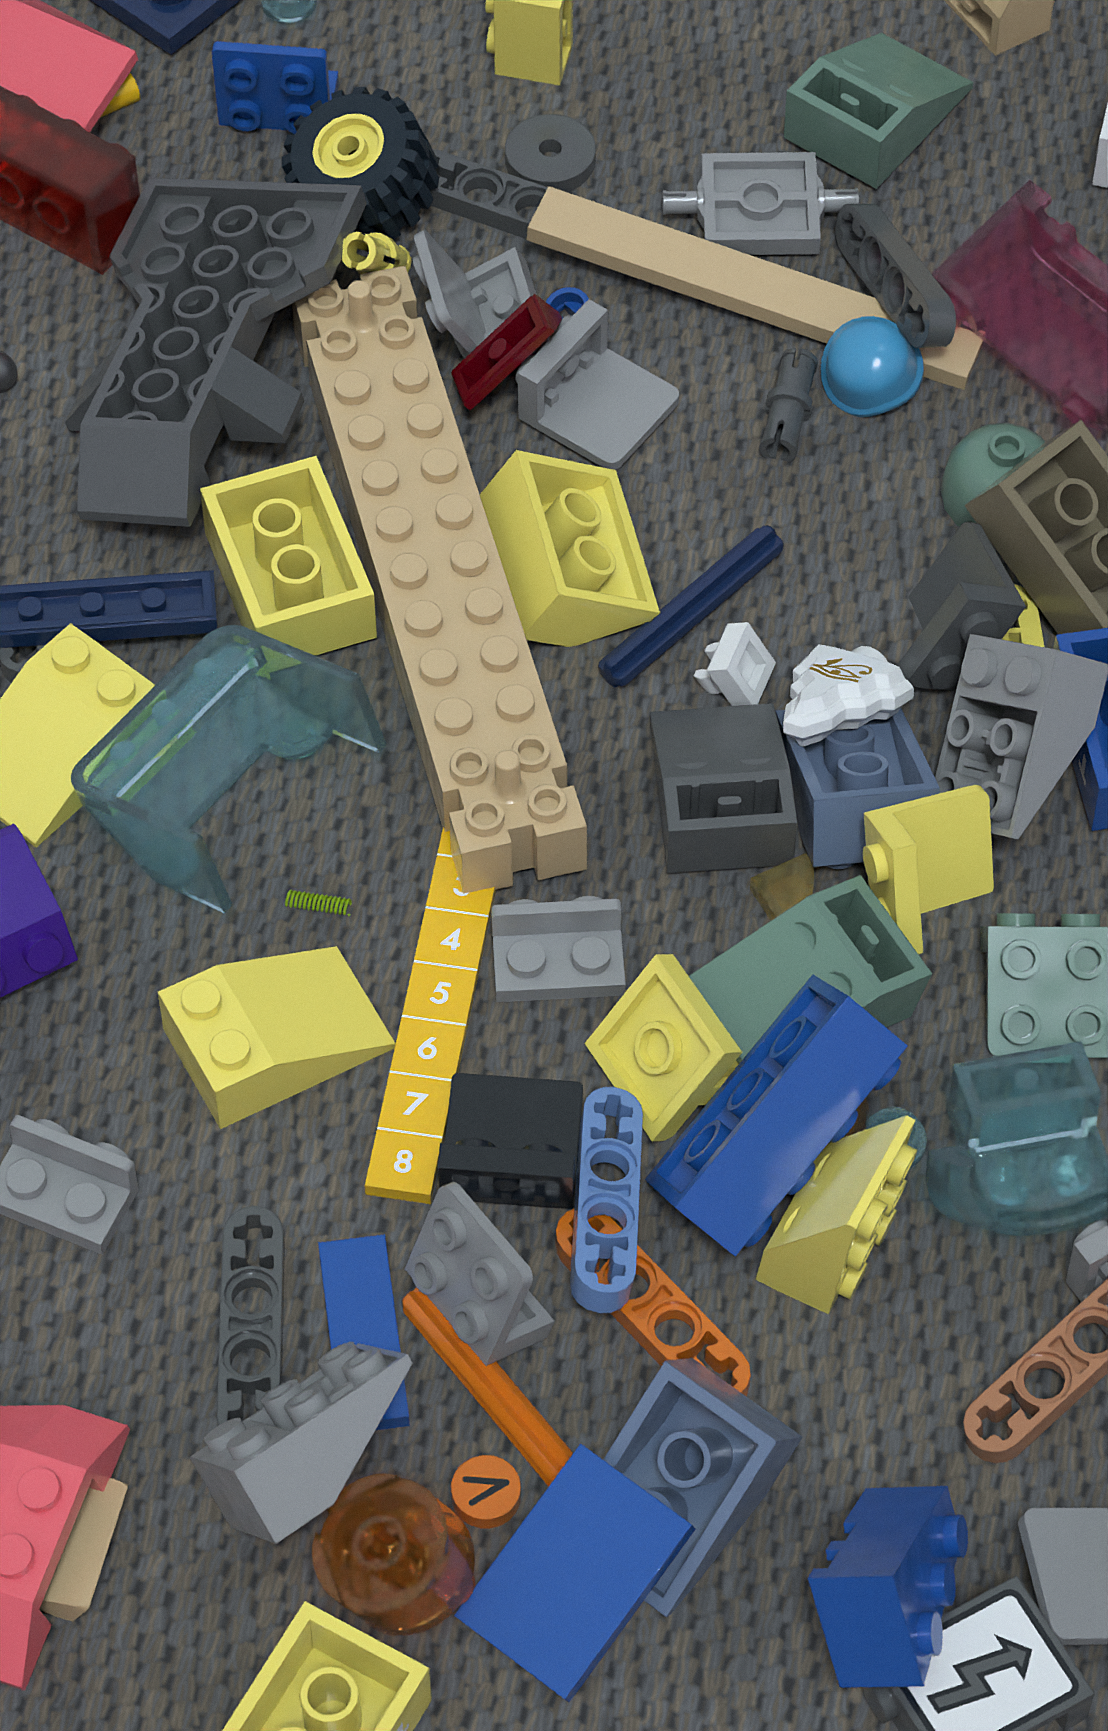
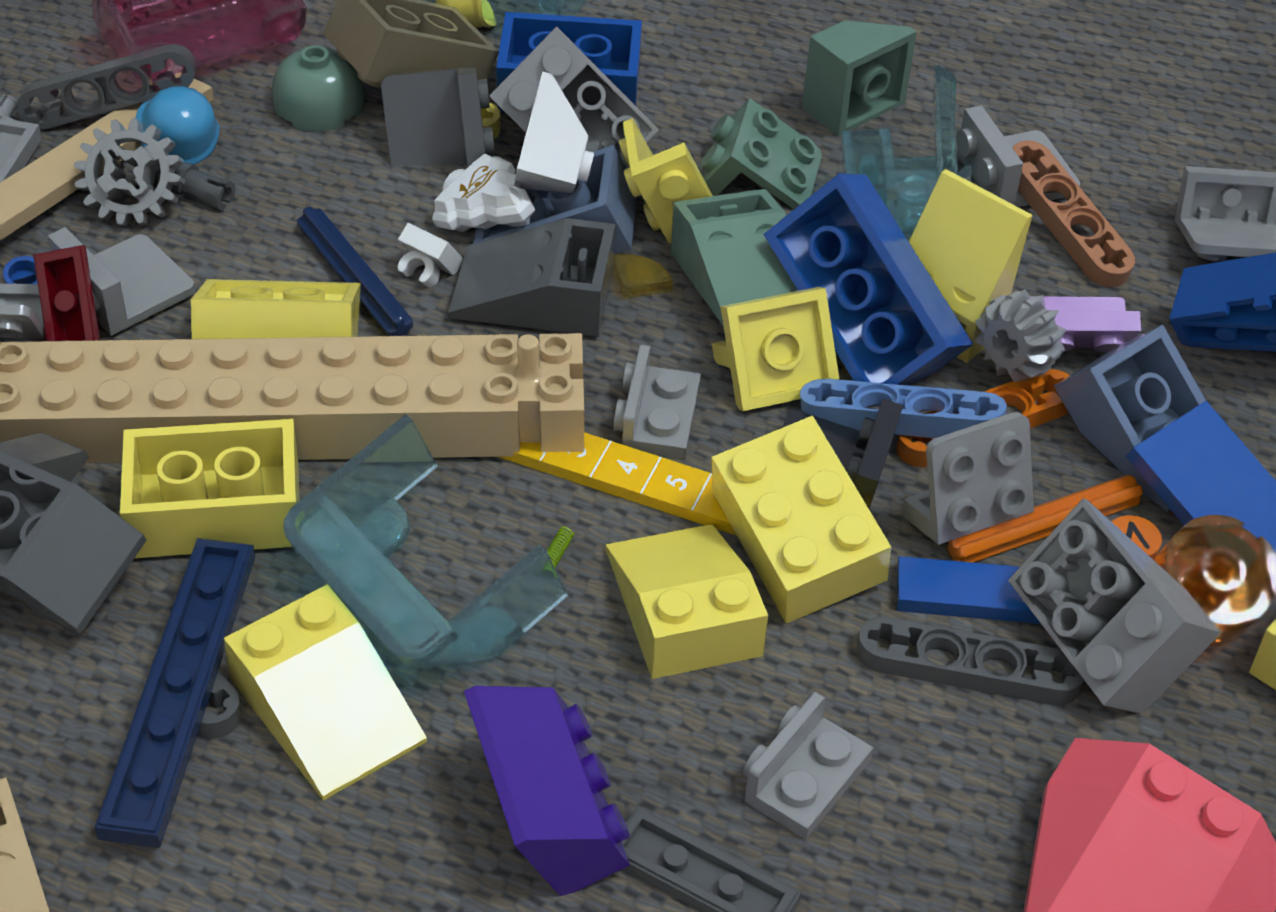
camera: 80 degrees left, 10 degrees down
(379, 1106) = (800, 519): none -> light yellow brick
(748, 1298) = (1020, 335): none -> light grey gear
(749, 343) = (113, 183): none -> light grey gear
(839, 1388) = (1094, 321): none -> lavender bracket
(885, 705) = (554, 143): none -> white slope

